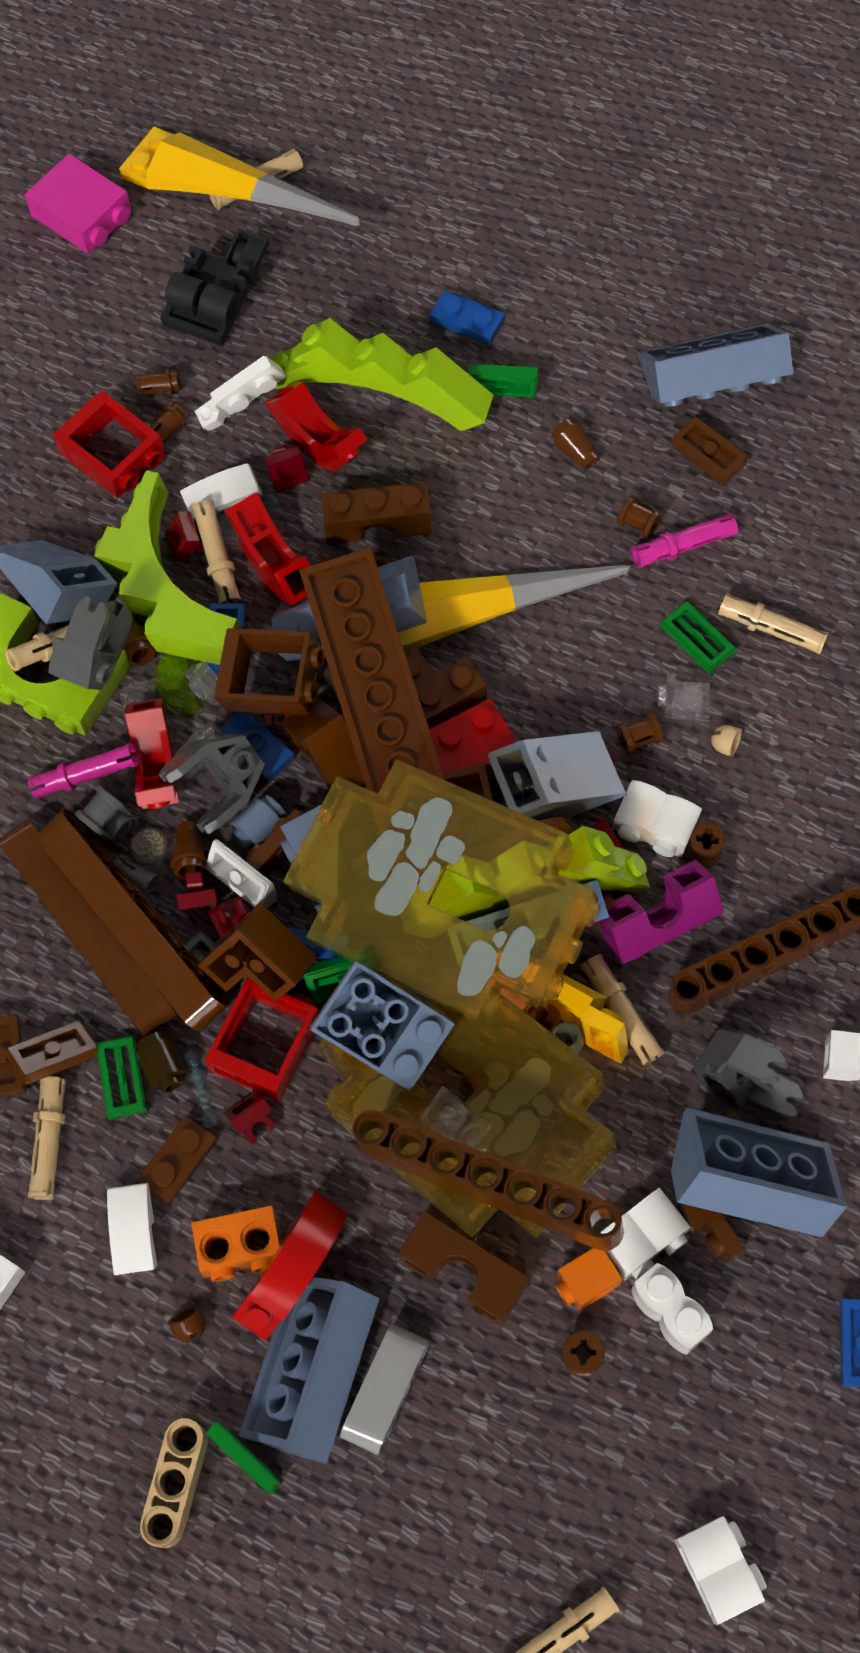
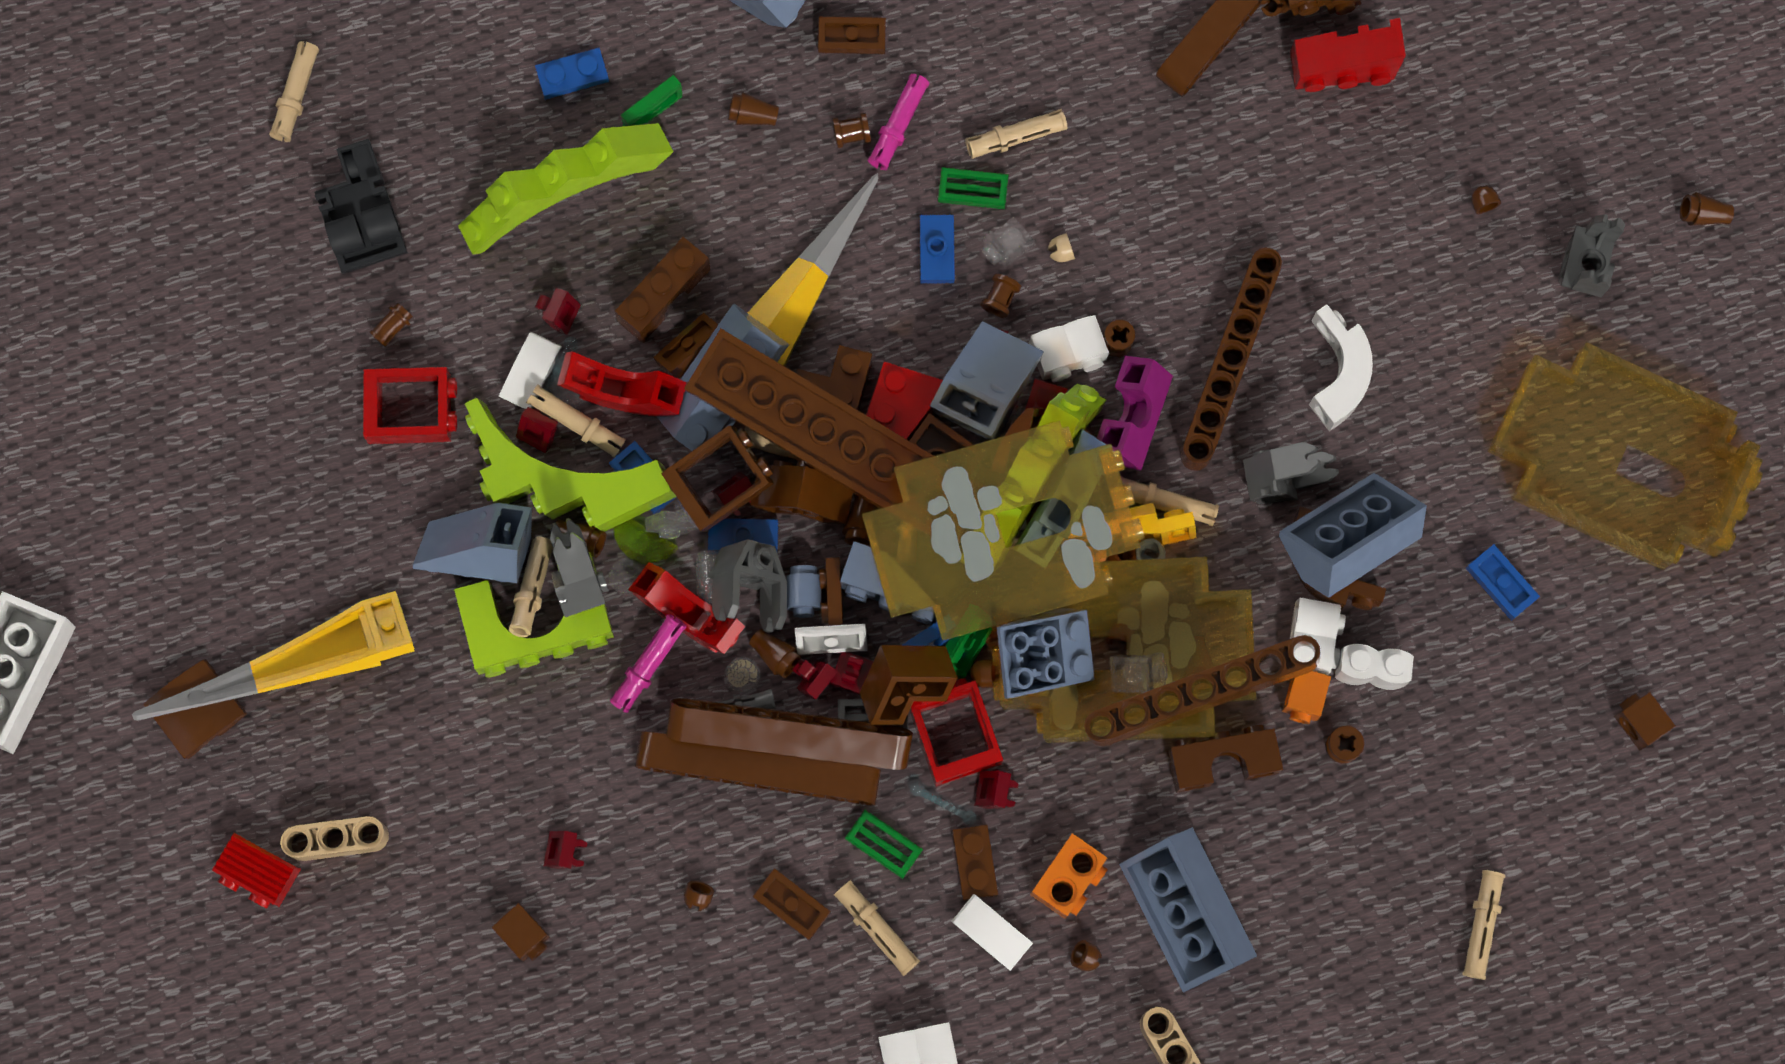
camera: 50 degrees left, 10 degrees up
(52, 1052) = (826, 870): reddish brown plate -> none
(78, 203) = (176, 230): dark pink brick -> none
(107, 816) = (698, 680): dark grey piece -> none
(161, 1062) = (903, 810): dark brown brick -> none
(170, 421) = (432, 348): reddish brown pin -> none
(189, 165) = (230, 126): yellow plate -> none
(239, 392) = (467, 284): white hinge -> none
(244, 1457) = (1203, 1000): green tile -> none
(291, 1266) = (1125, 856): red arch -> none
(312, 429) = (554, 264): red arch -> none
(384, 1389) = (1248, 878): light grey beam -> none
(623, 659) = (937, 249): none -> blue plate
(720, 1570) = (1540, 796): white brick -> none

